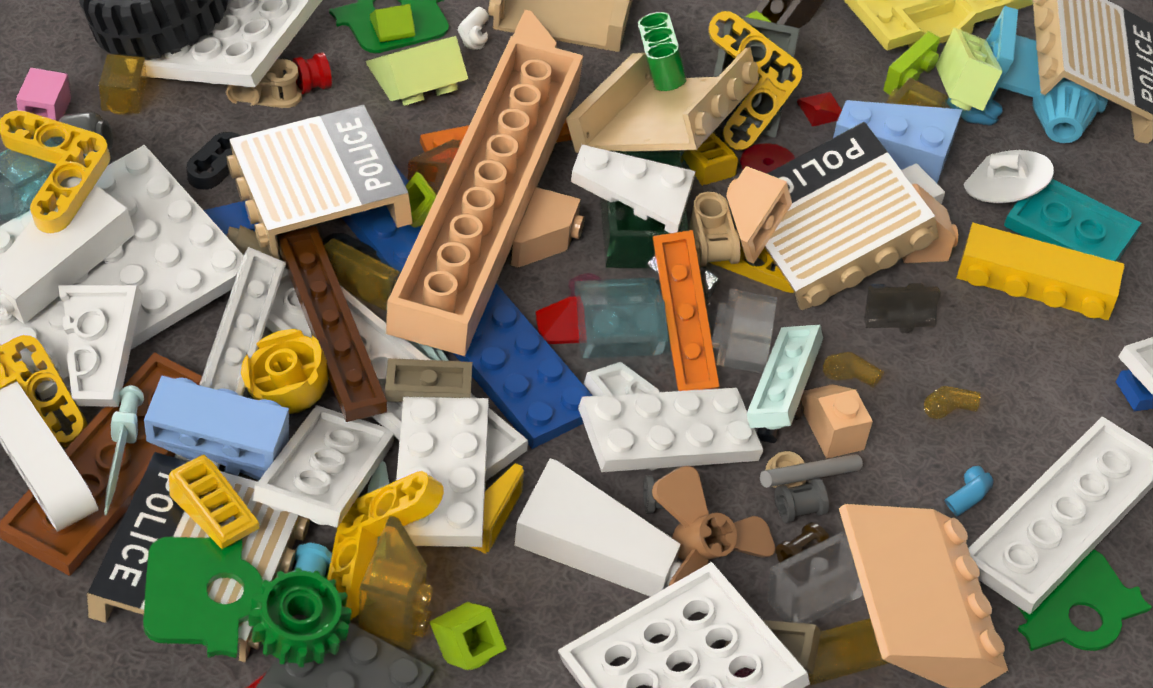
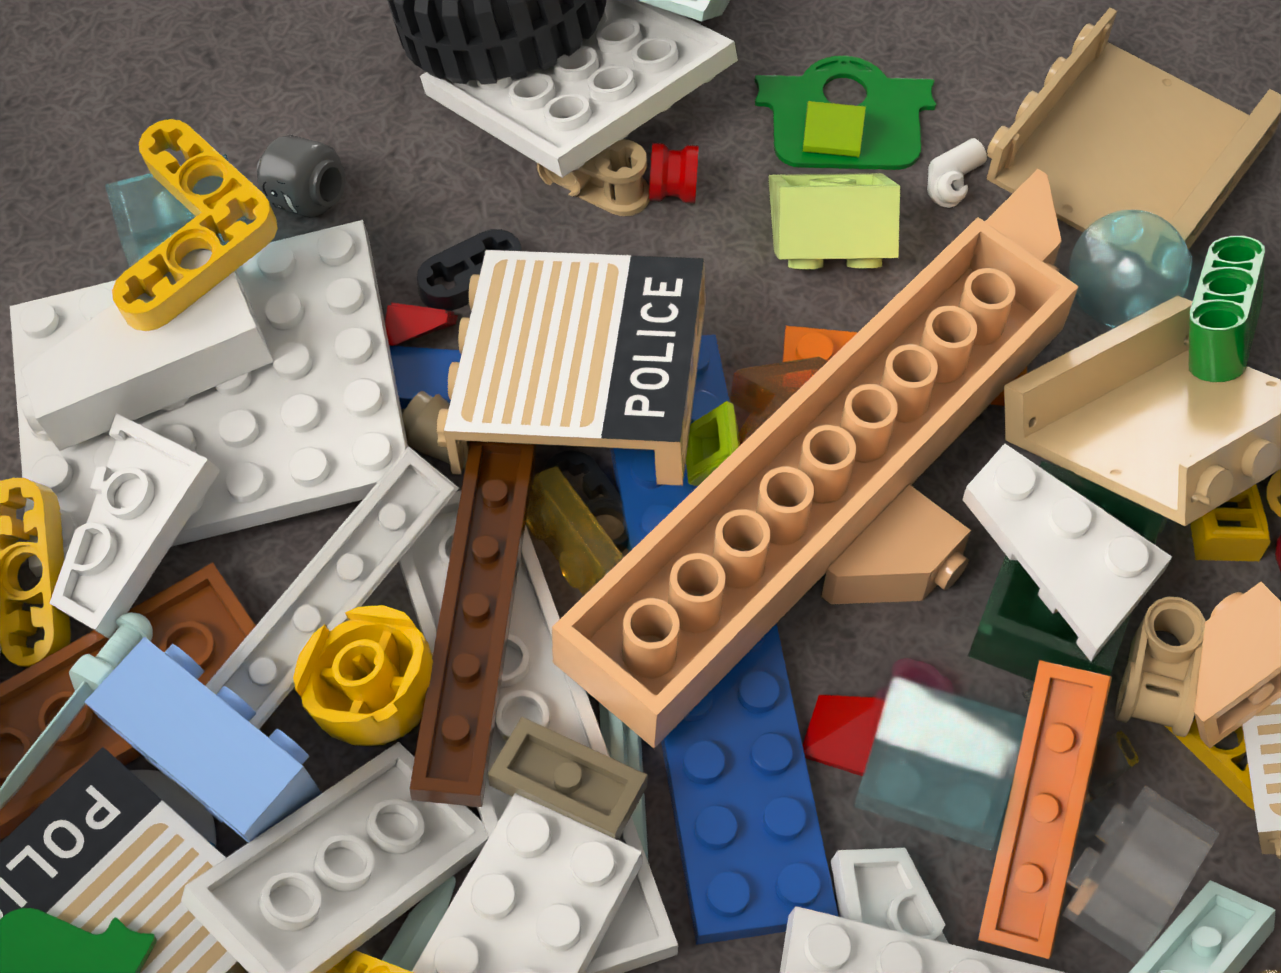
camera: 30 degrees right, 10 degrees up
(44, 94) = (281, 96): bright pink brick -> none
(122, 84) = (399, 108): clear yellow brick -> none
(200, 477) = (114, 834): yellow slope -> none
(205, 191) = (411, 322): none -> red slope
(603, 42) = (1128, 266): none -> clear light blue dish

